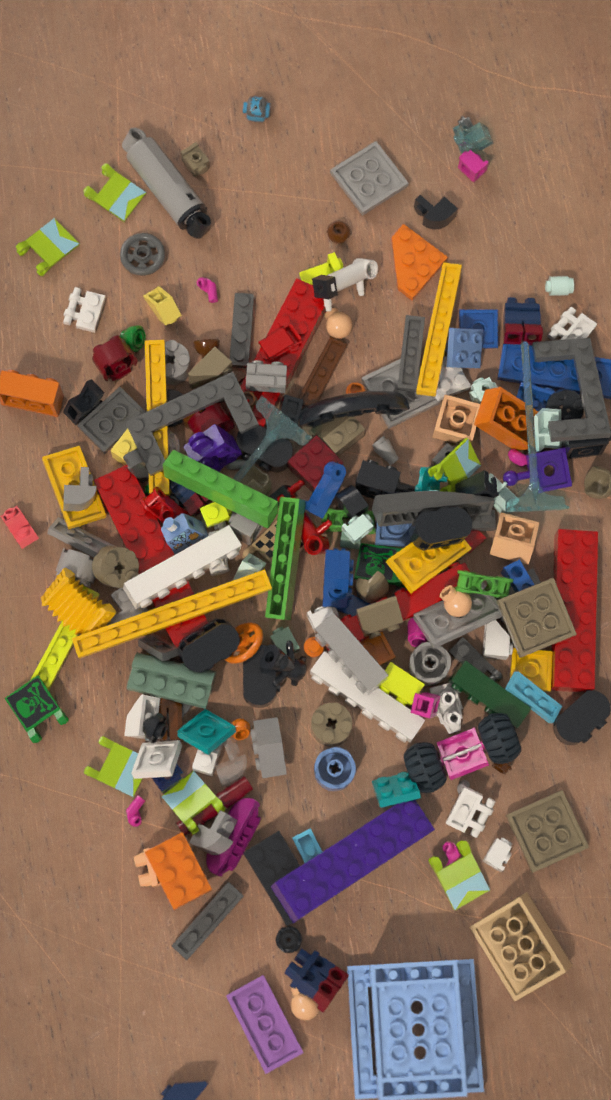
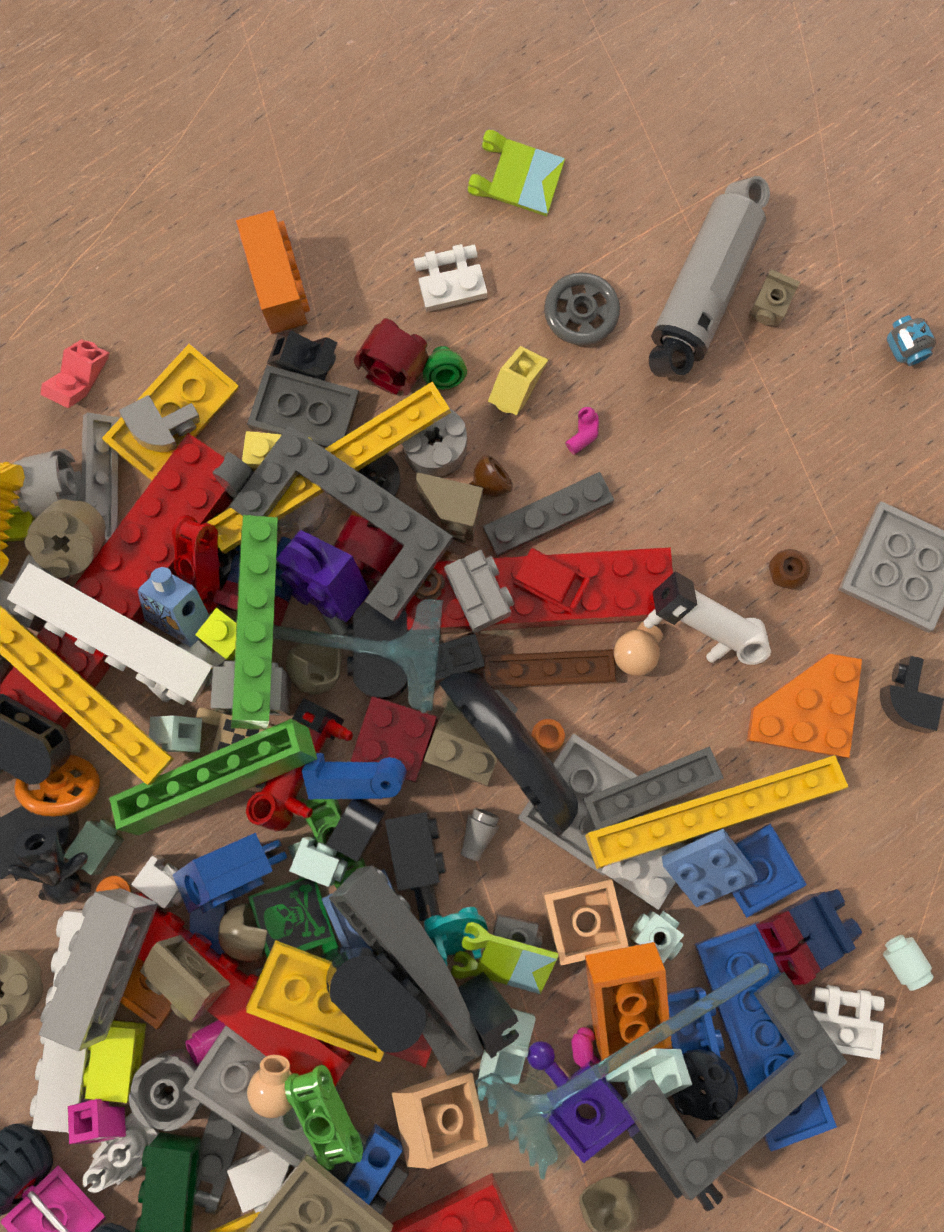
camera: 65 degrees right, 5 degrees up
(118, 194) = (653, 225): lime flag -> none
(332, 265) = (708, 579): neon yellow bracket -> none

